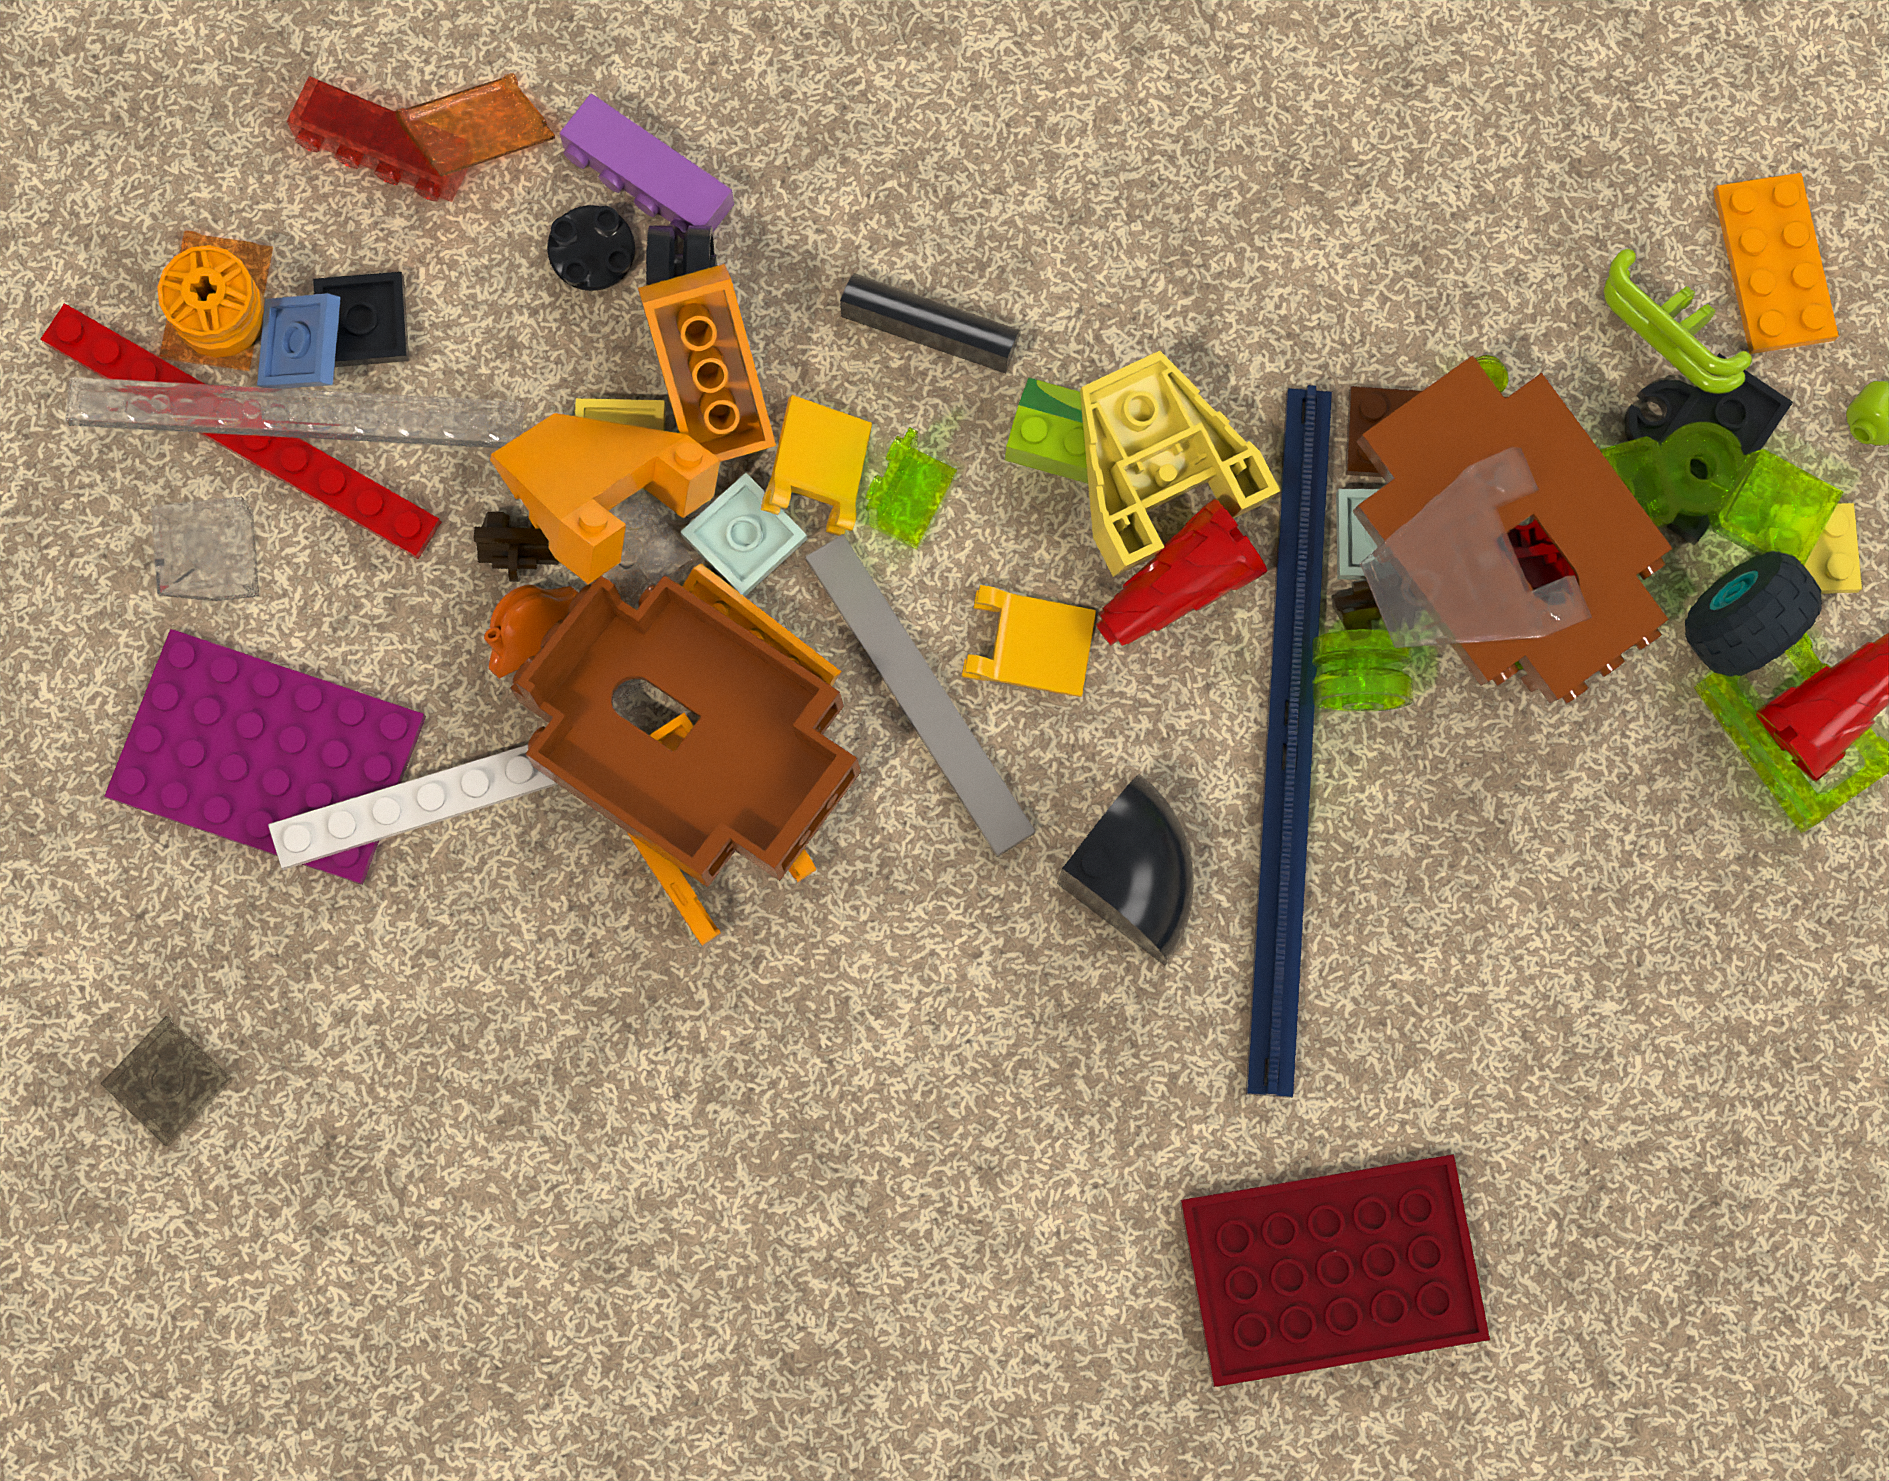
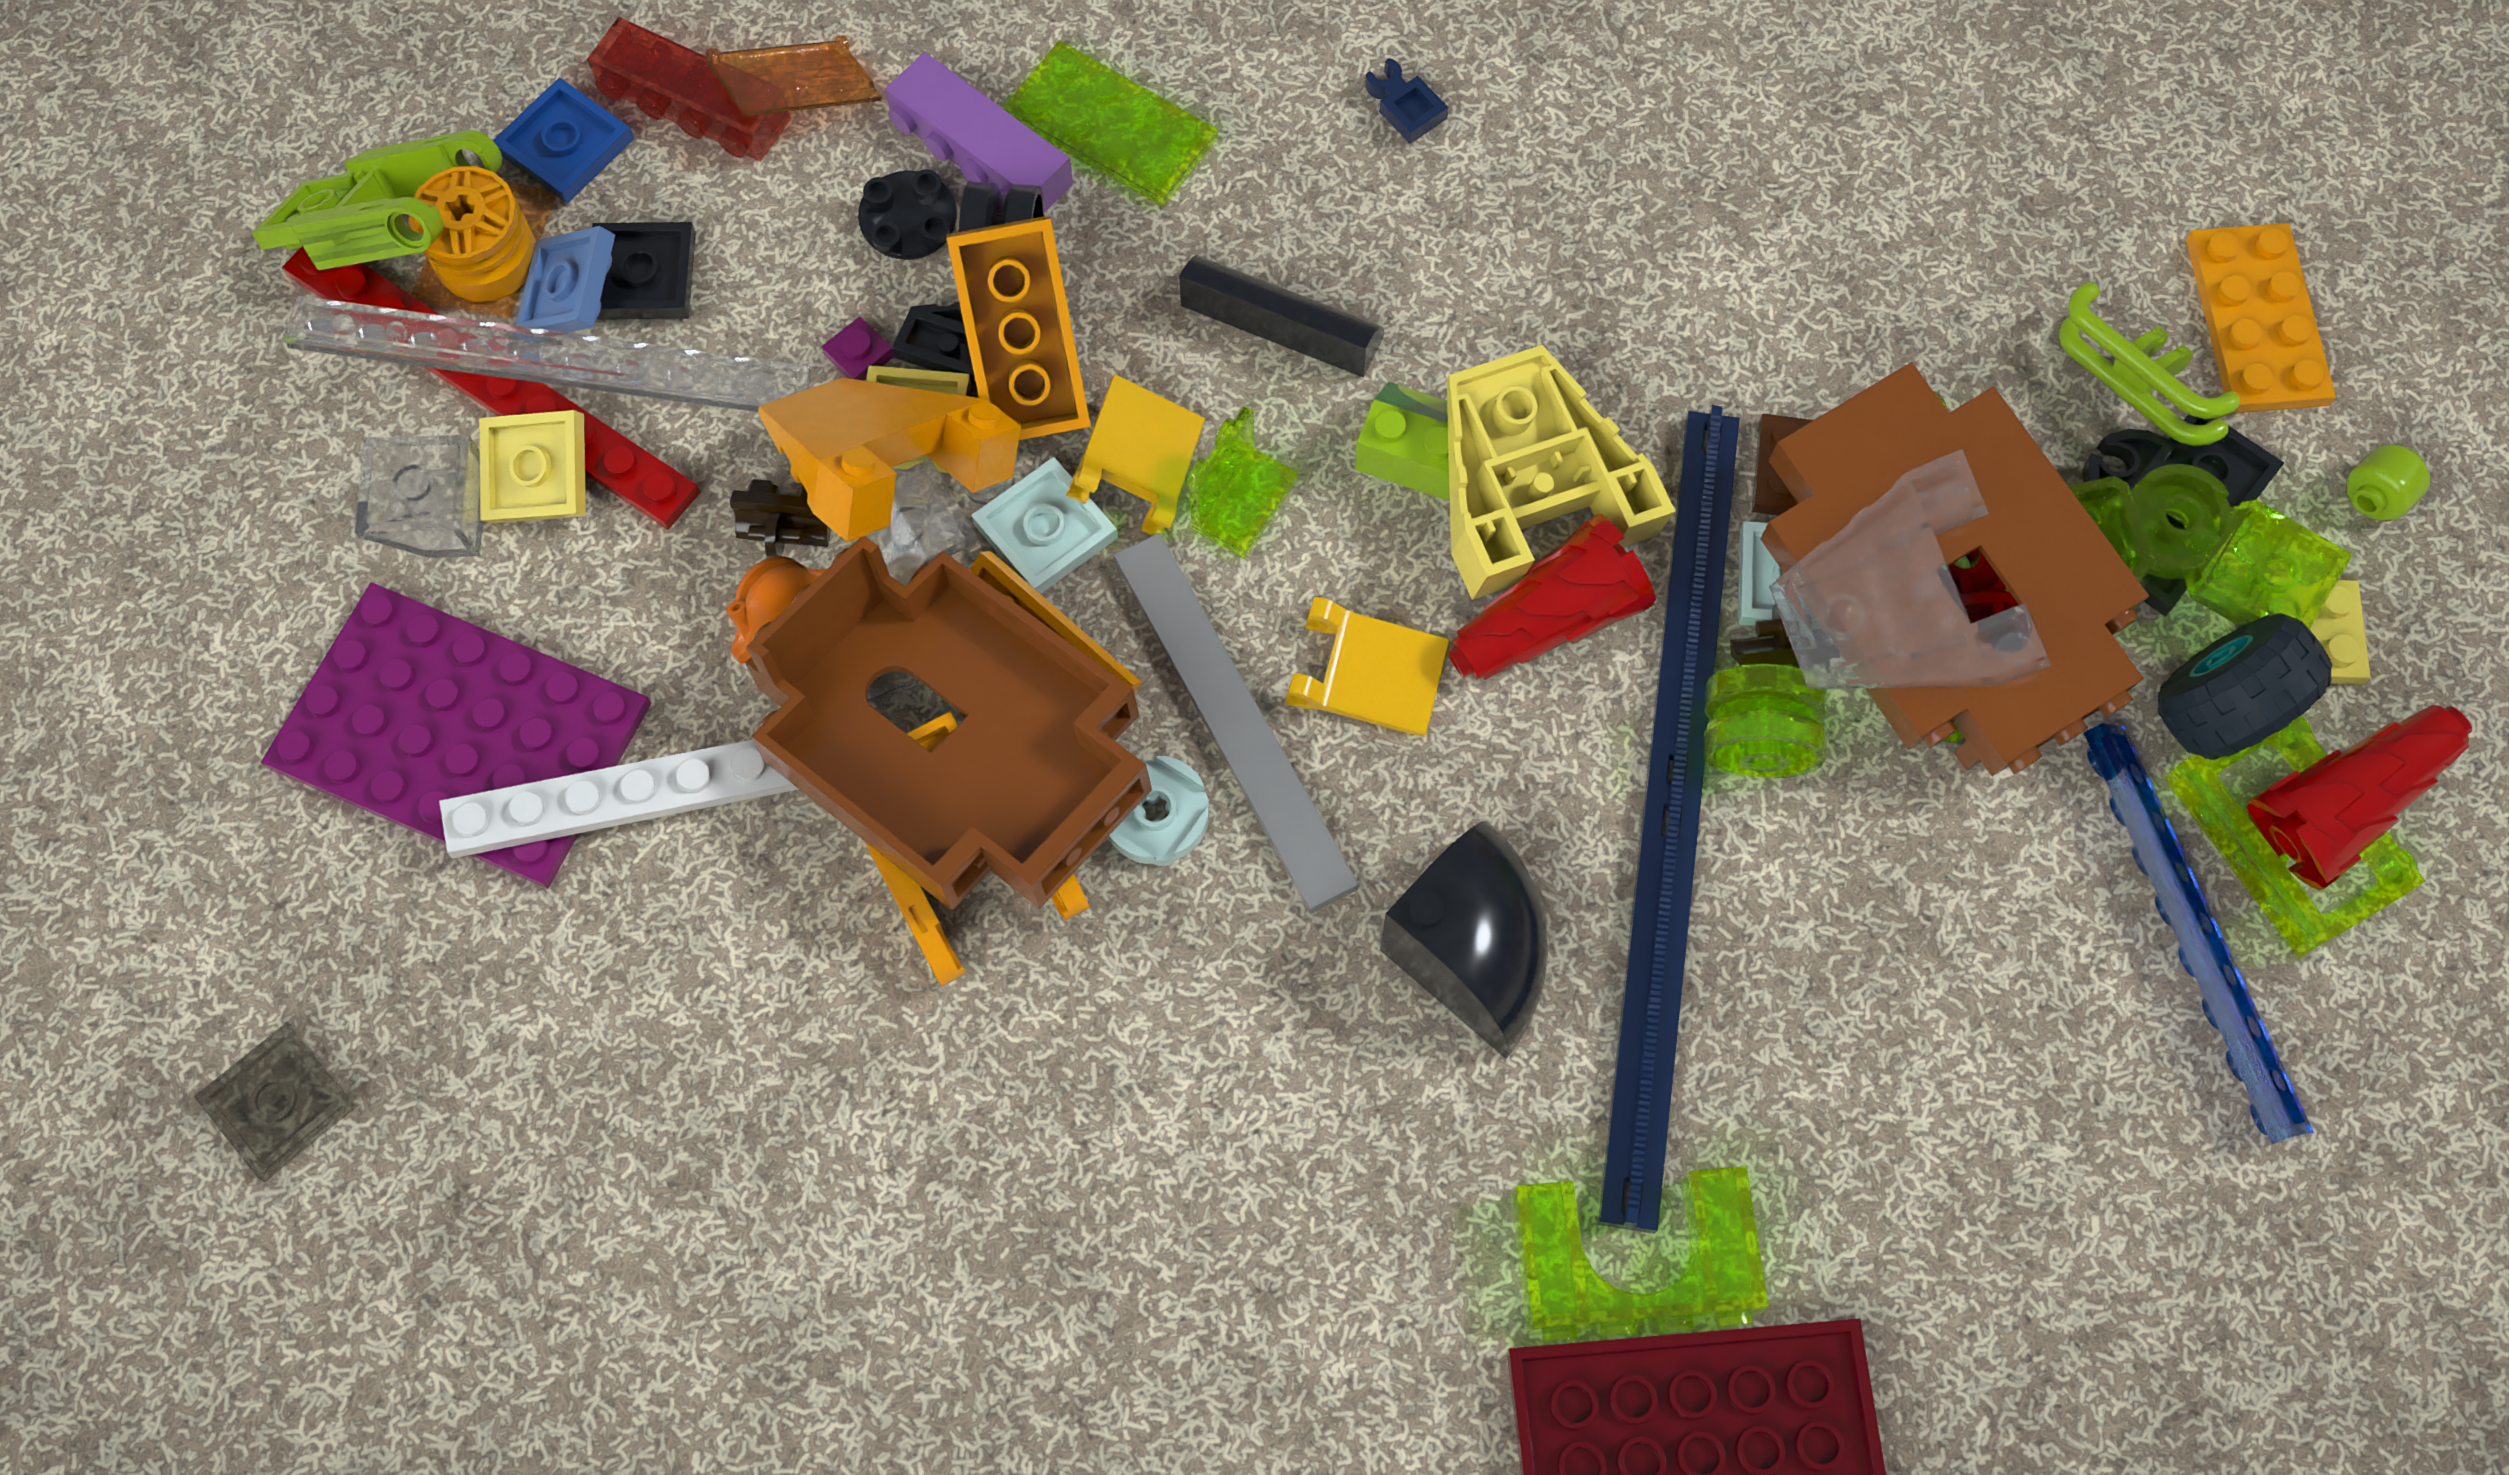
camera: 10 degrees right, 10 degrees down
(89, 283) = (361, 211): none -> lime plate
(273, 196) = (563, 140): none -> blue plate
(296, 516) = (532, 467): none -> light yellow plate
(562, 381) = (856, 349): none -> magenta plate
(632, 368) = (935, 339): none -> black wing
(762, 143) = (1112, 123): none -> clear neon green plate
(890, 781) = (1177, 834): none -> light aqua plate
(1027, 110) = (1407, 106): none -> dark blue plate
(1342, 1133) = (1568, 1295): none -> clear neon green arch
(1716, 815) = (2203, 947): none -> clear blue plate

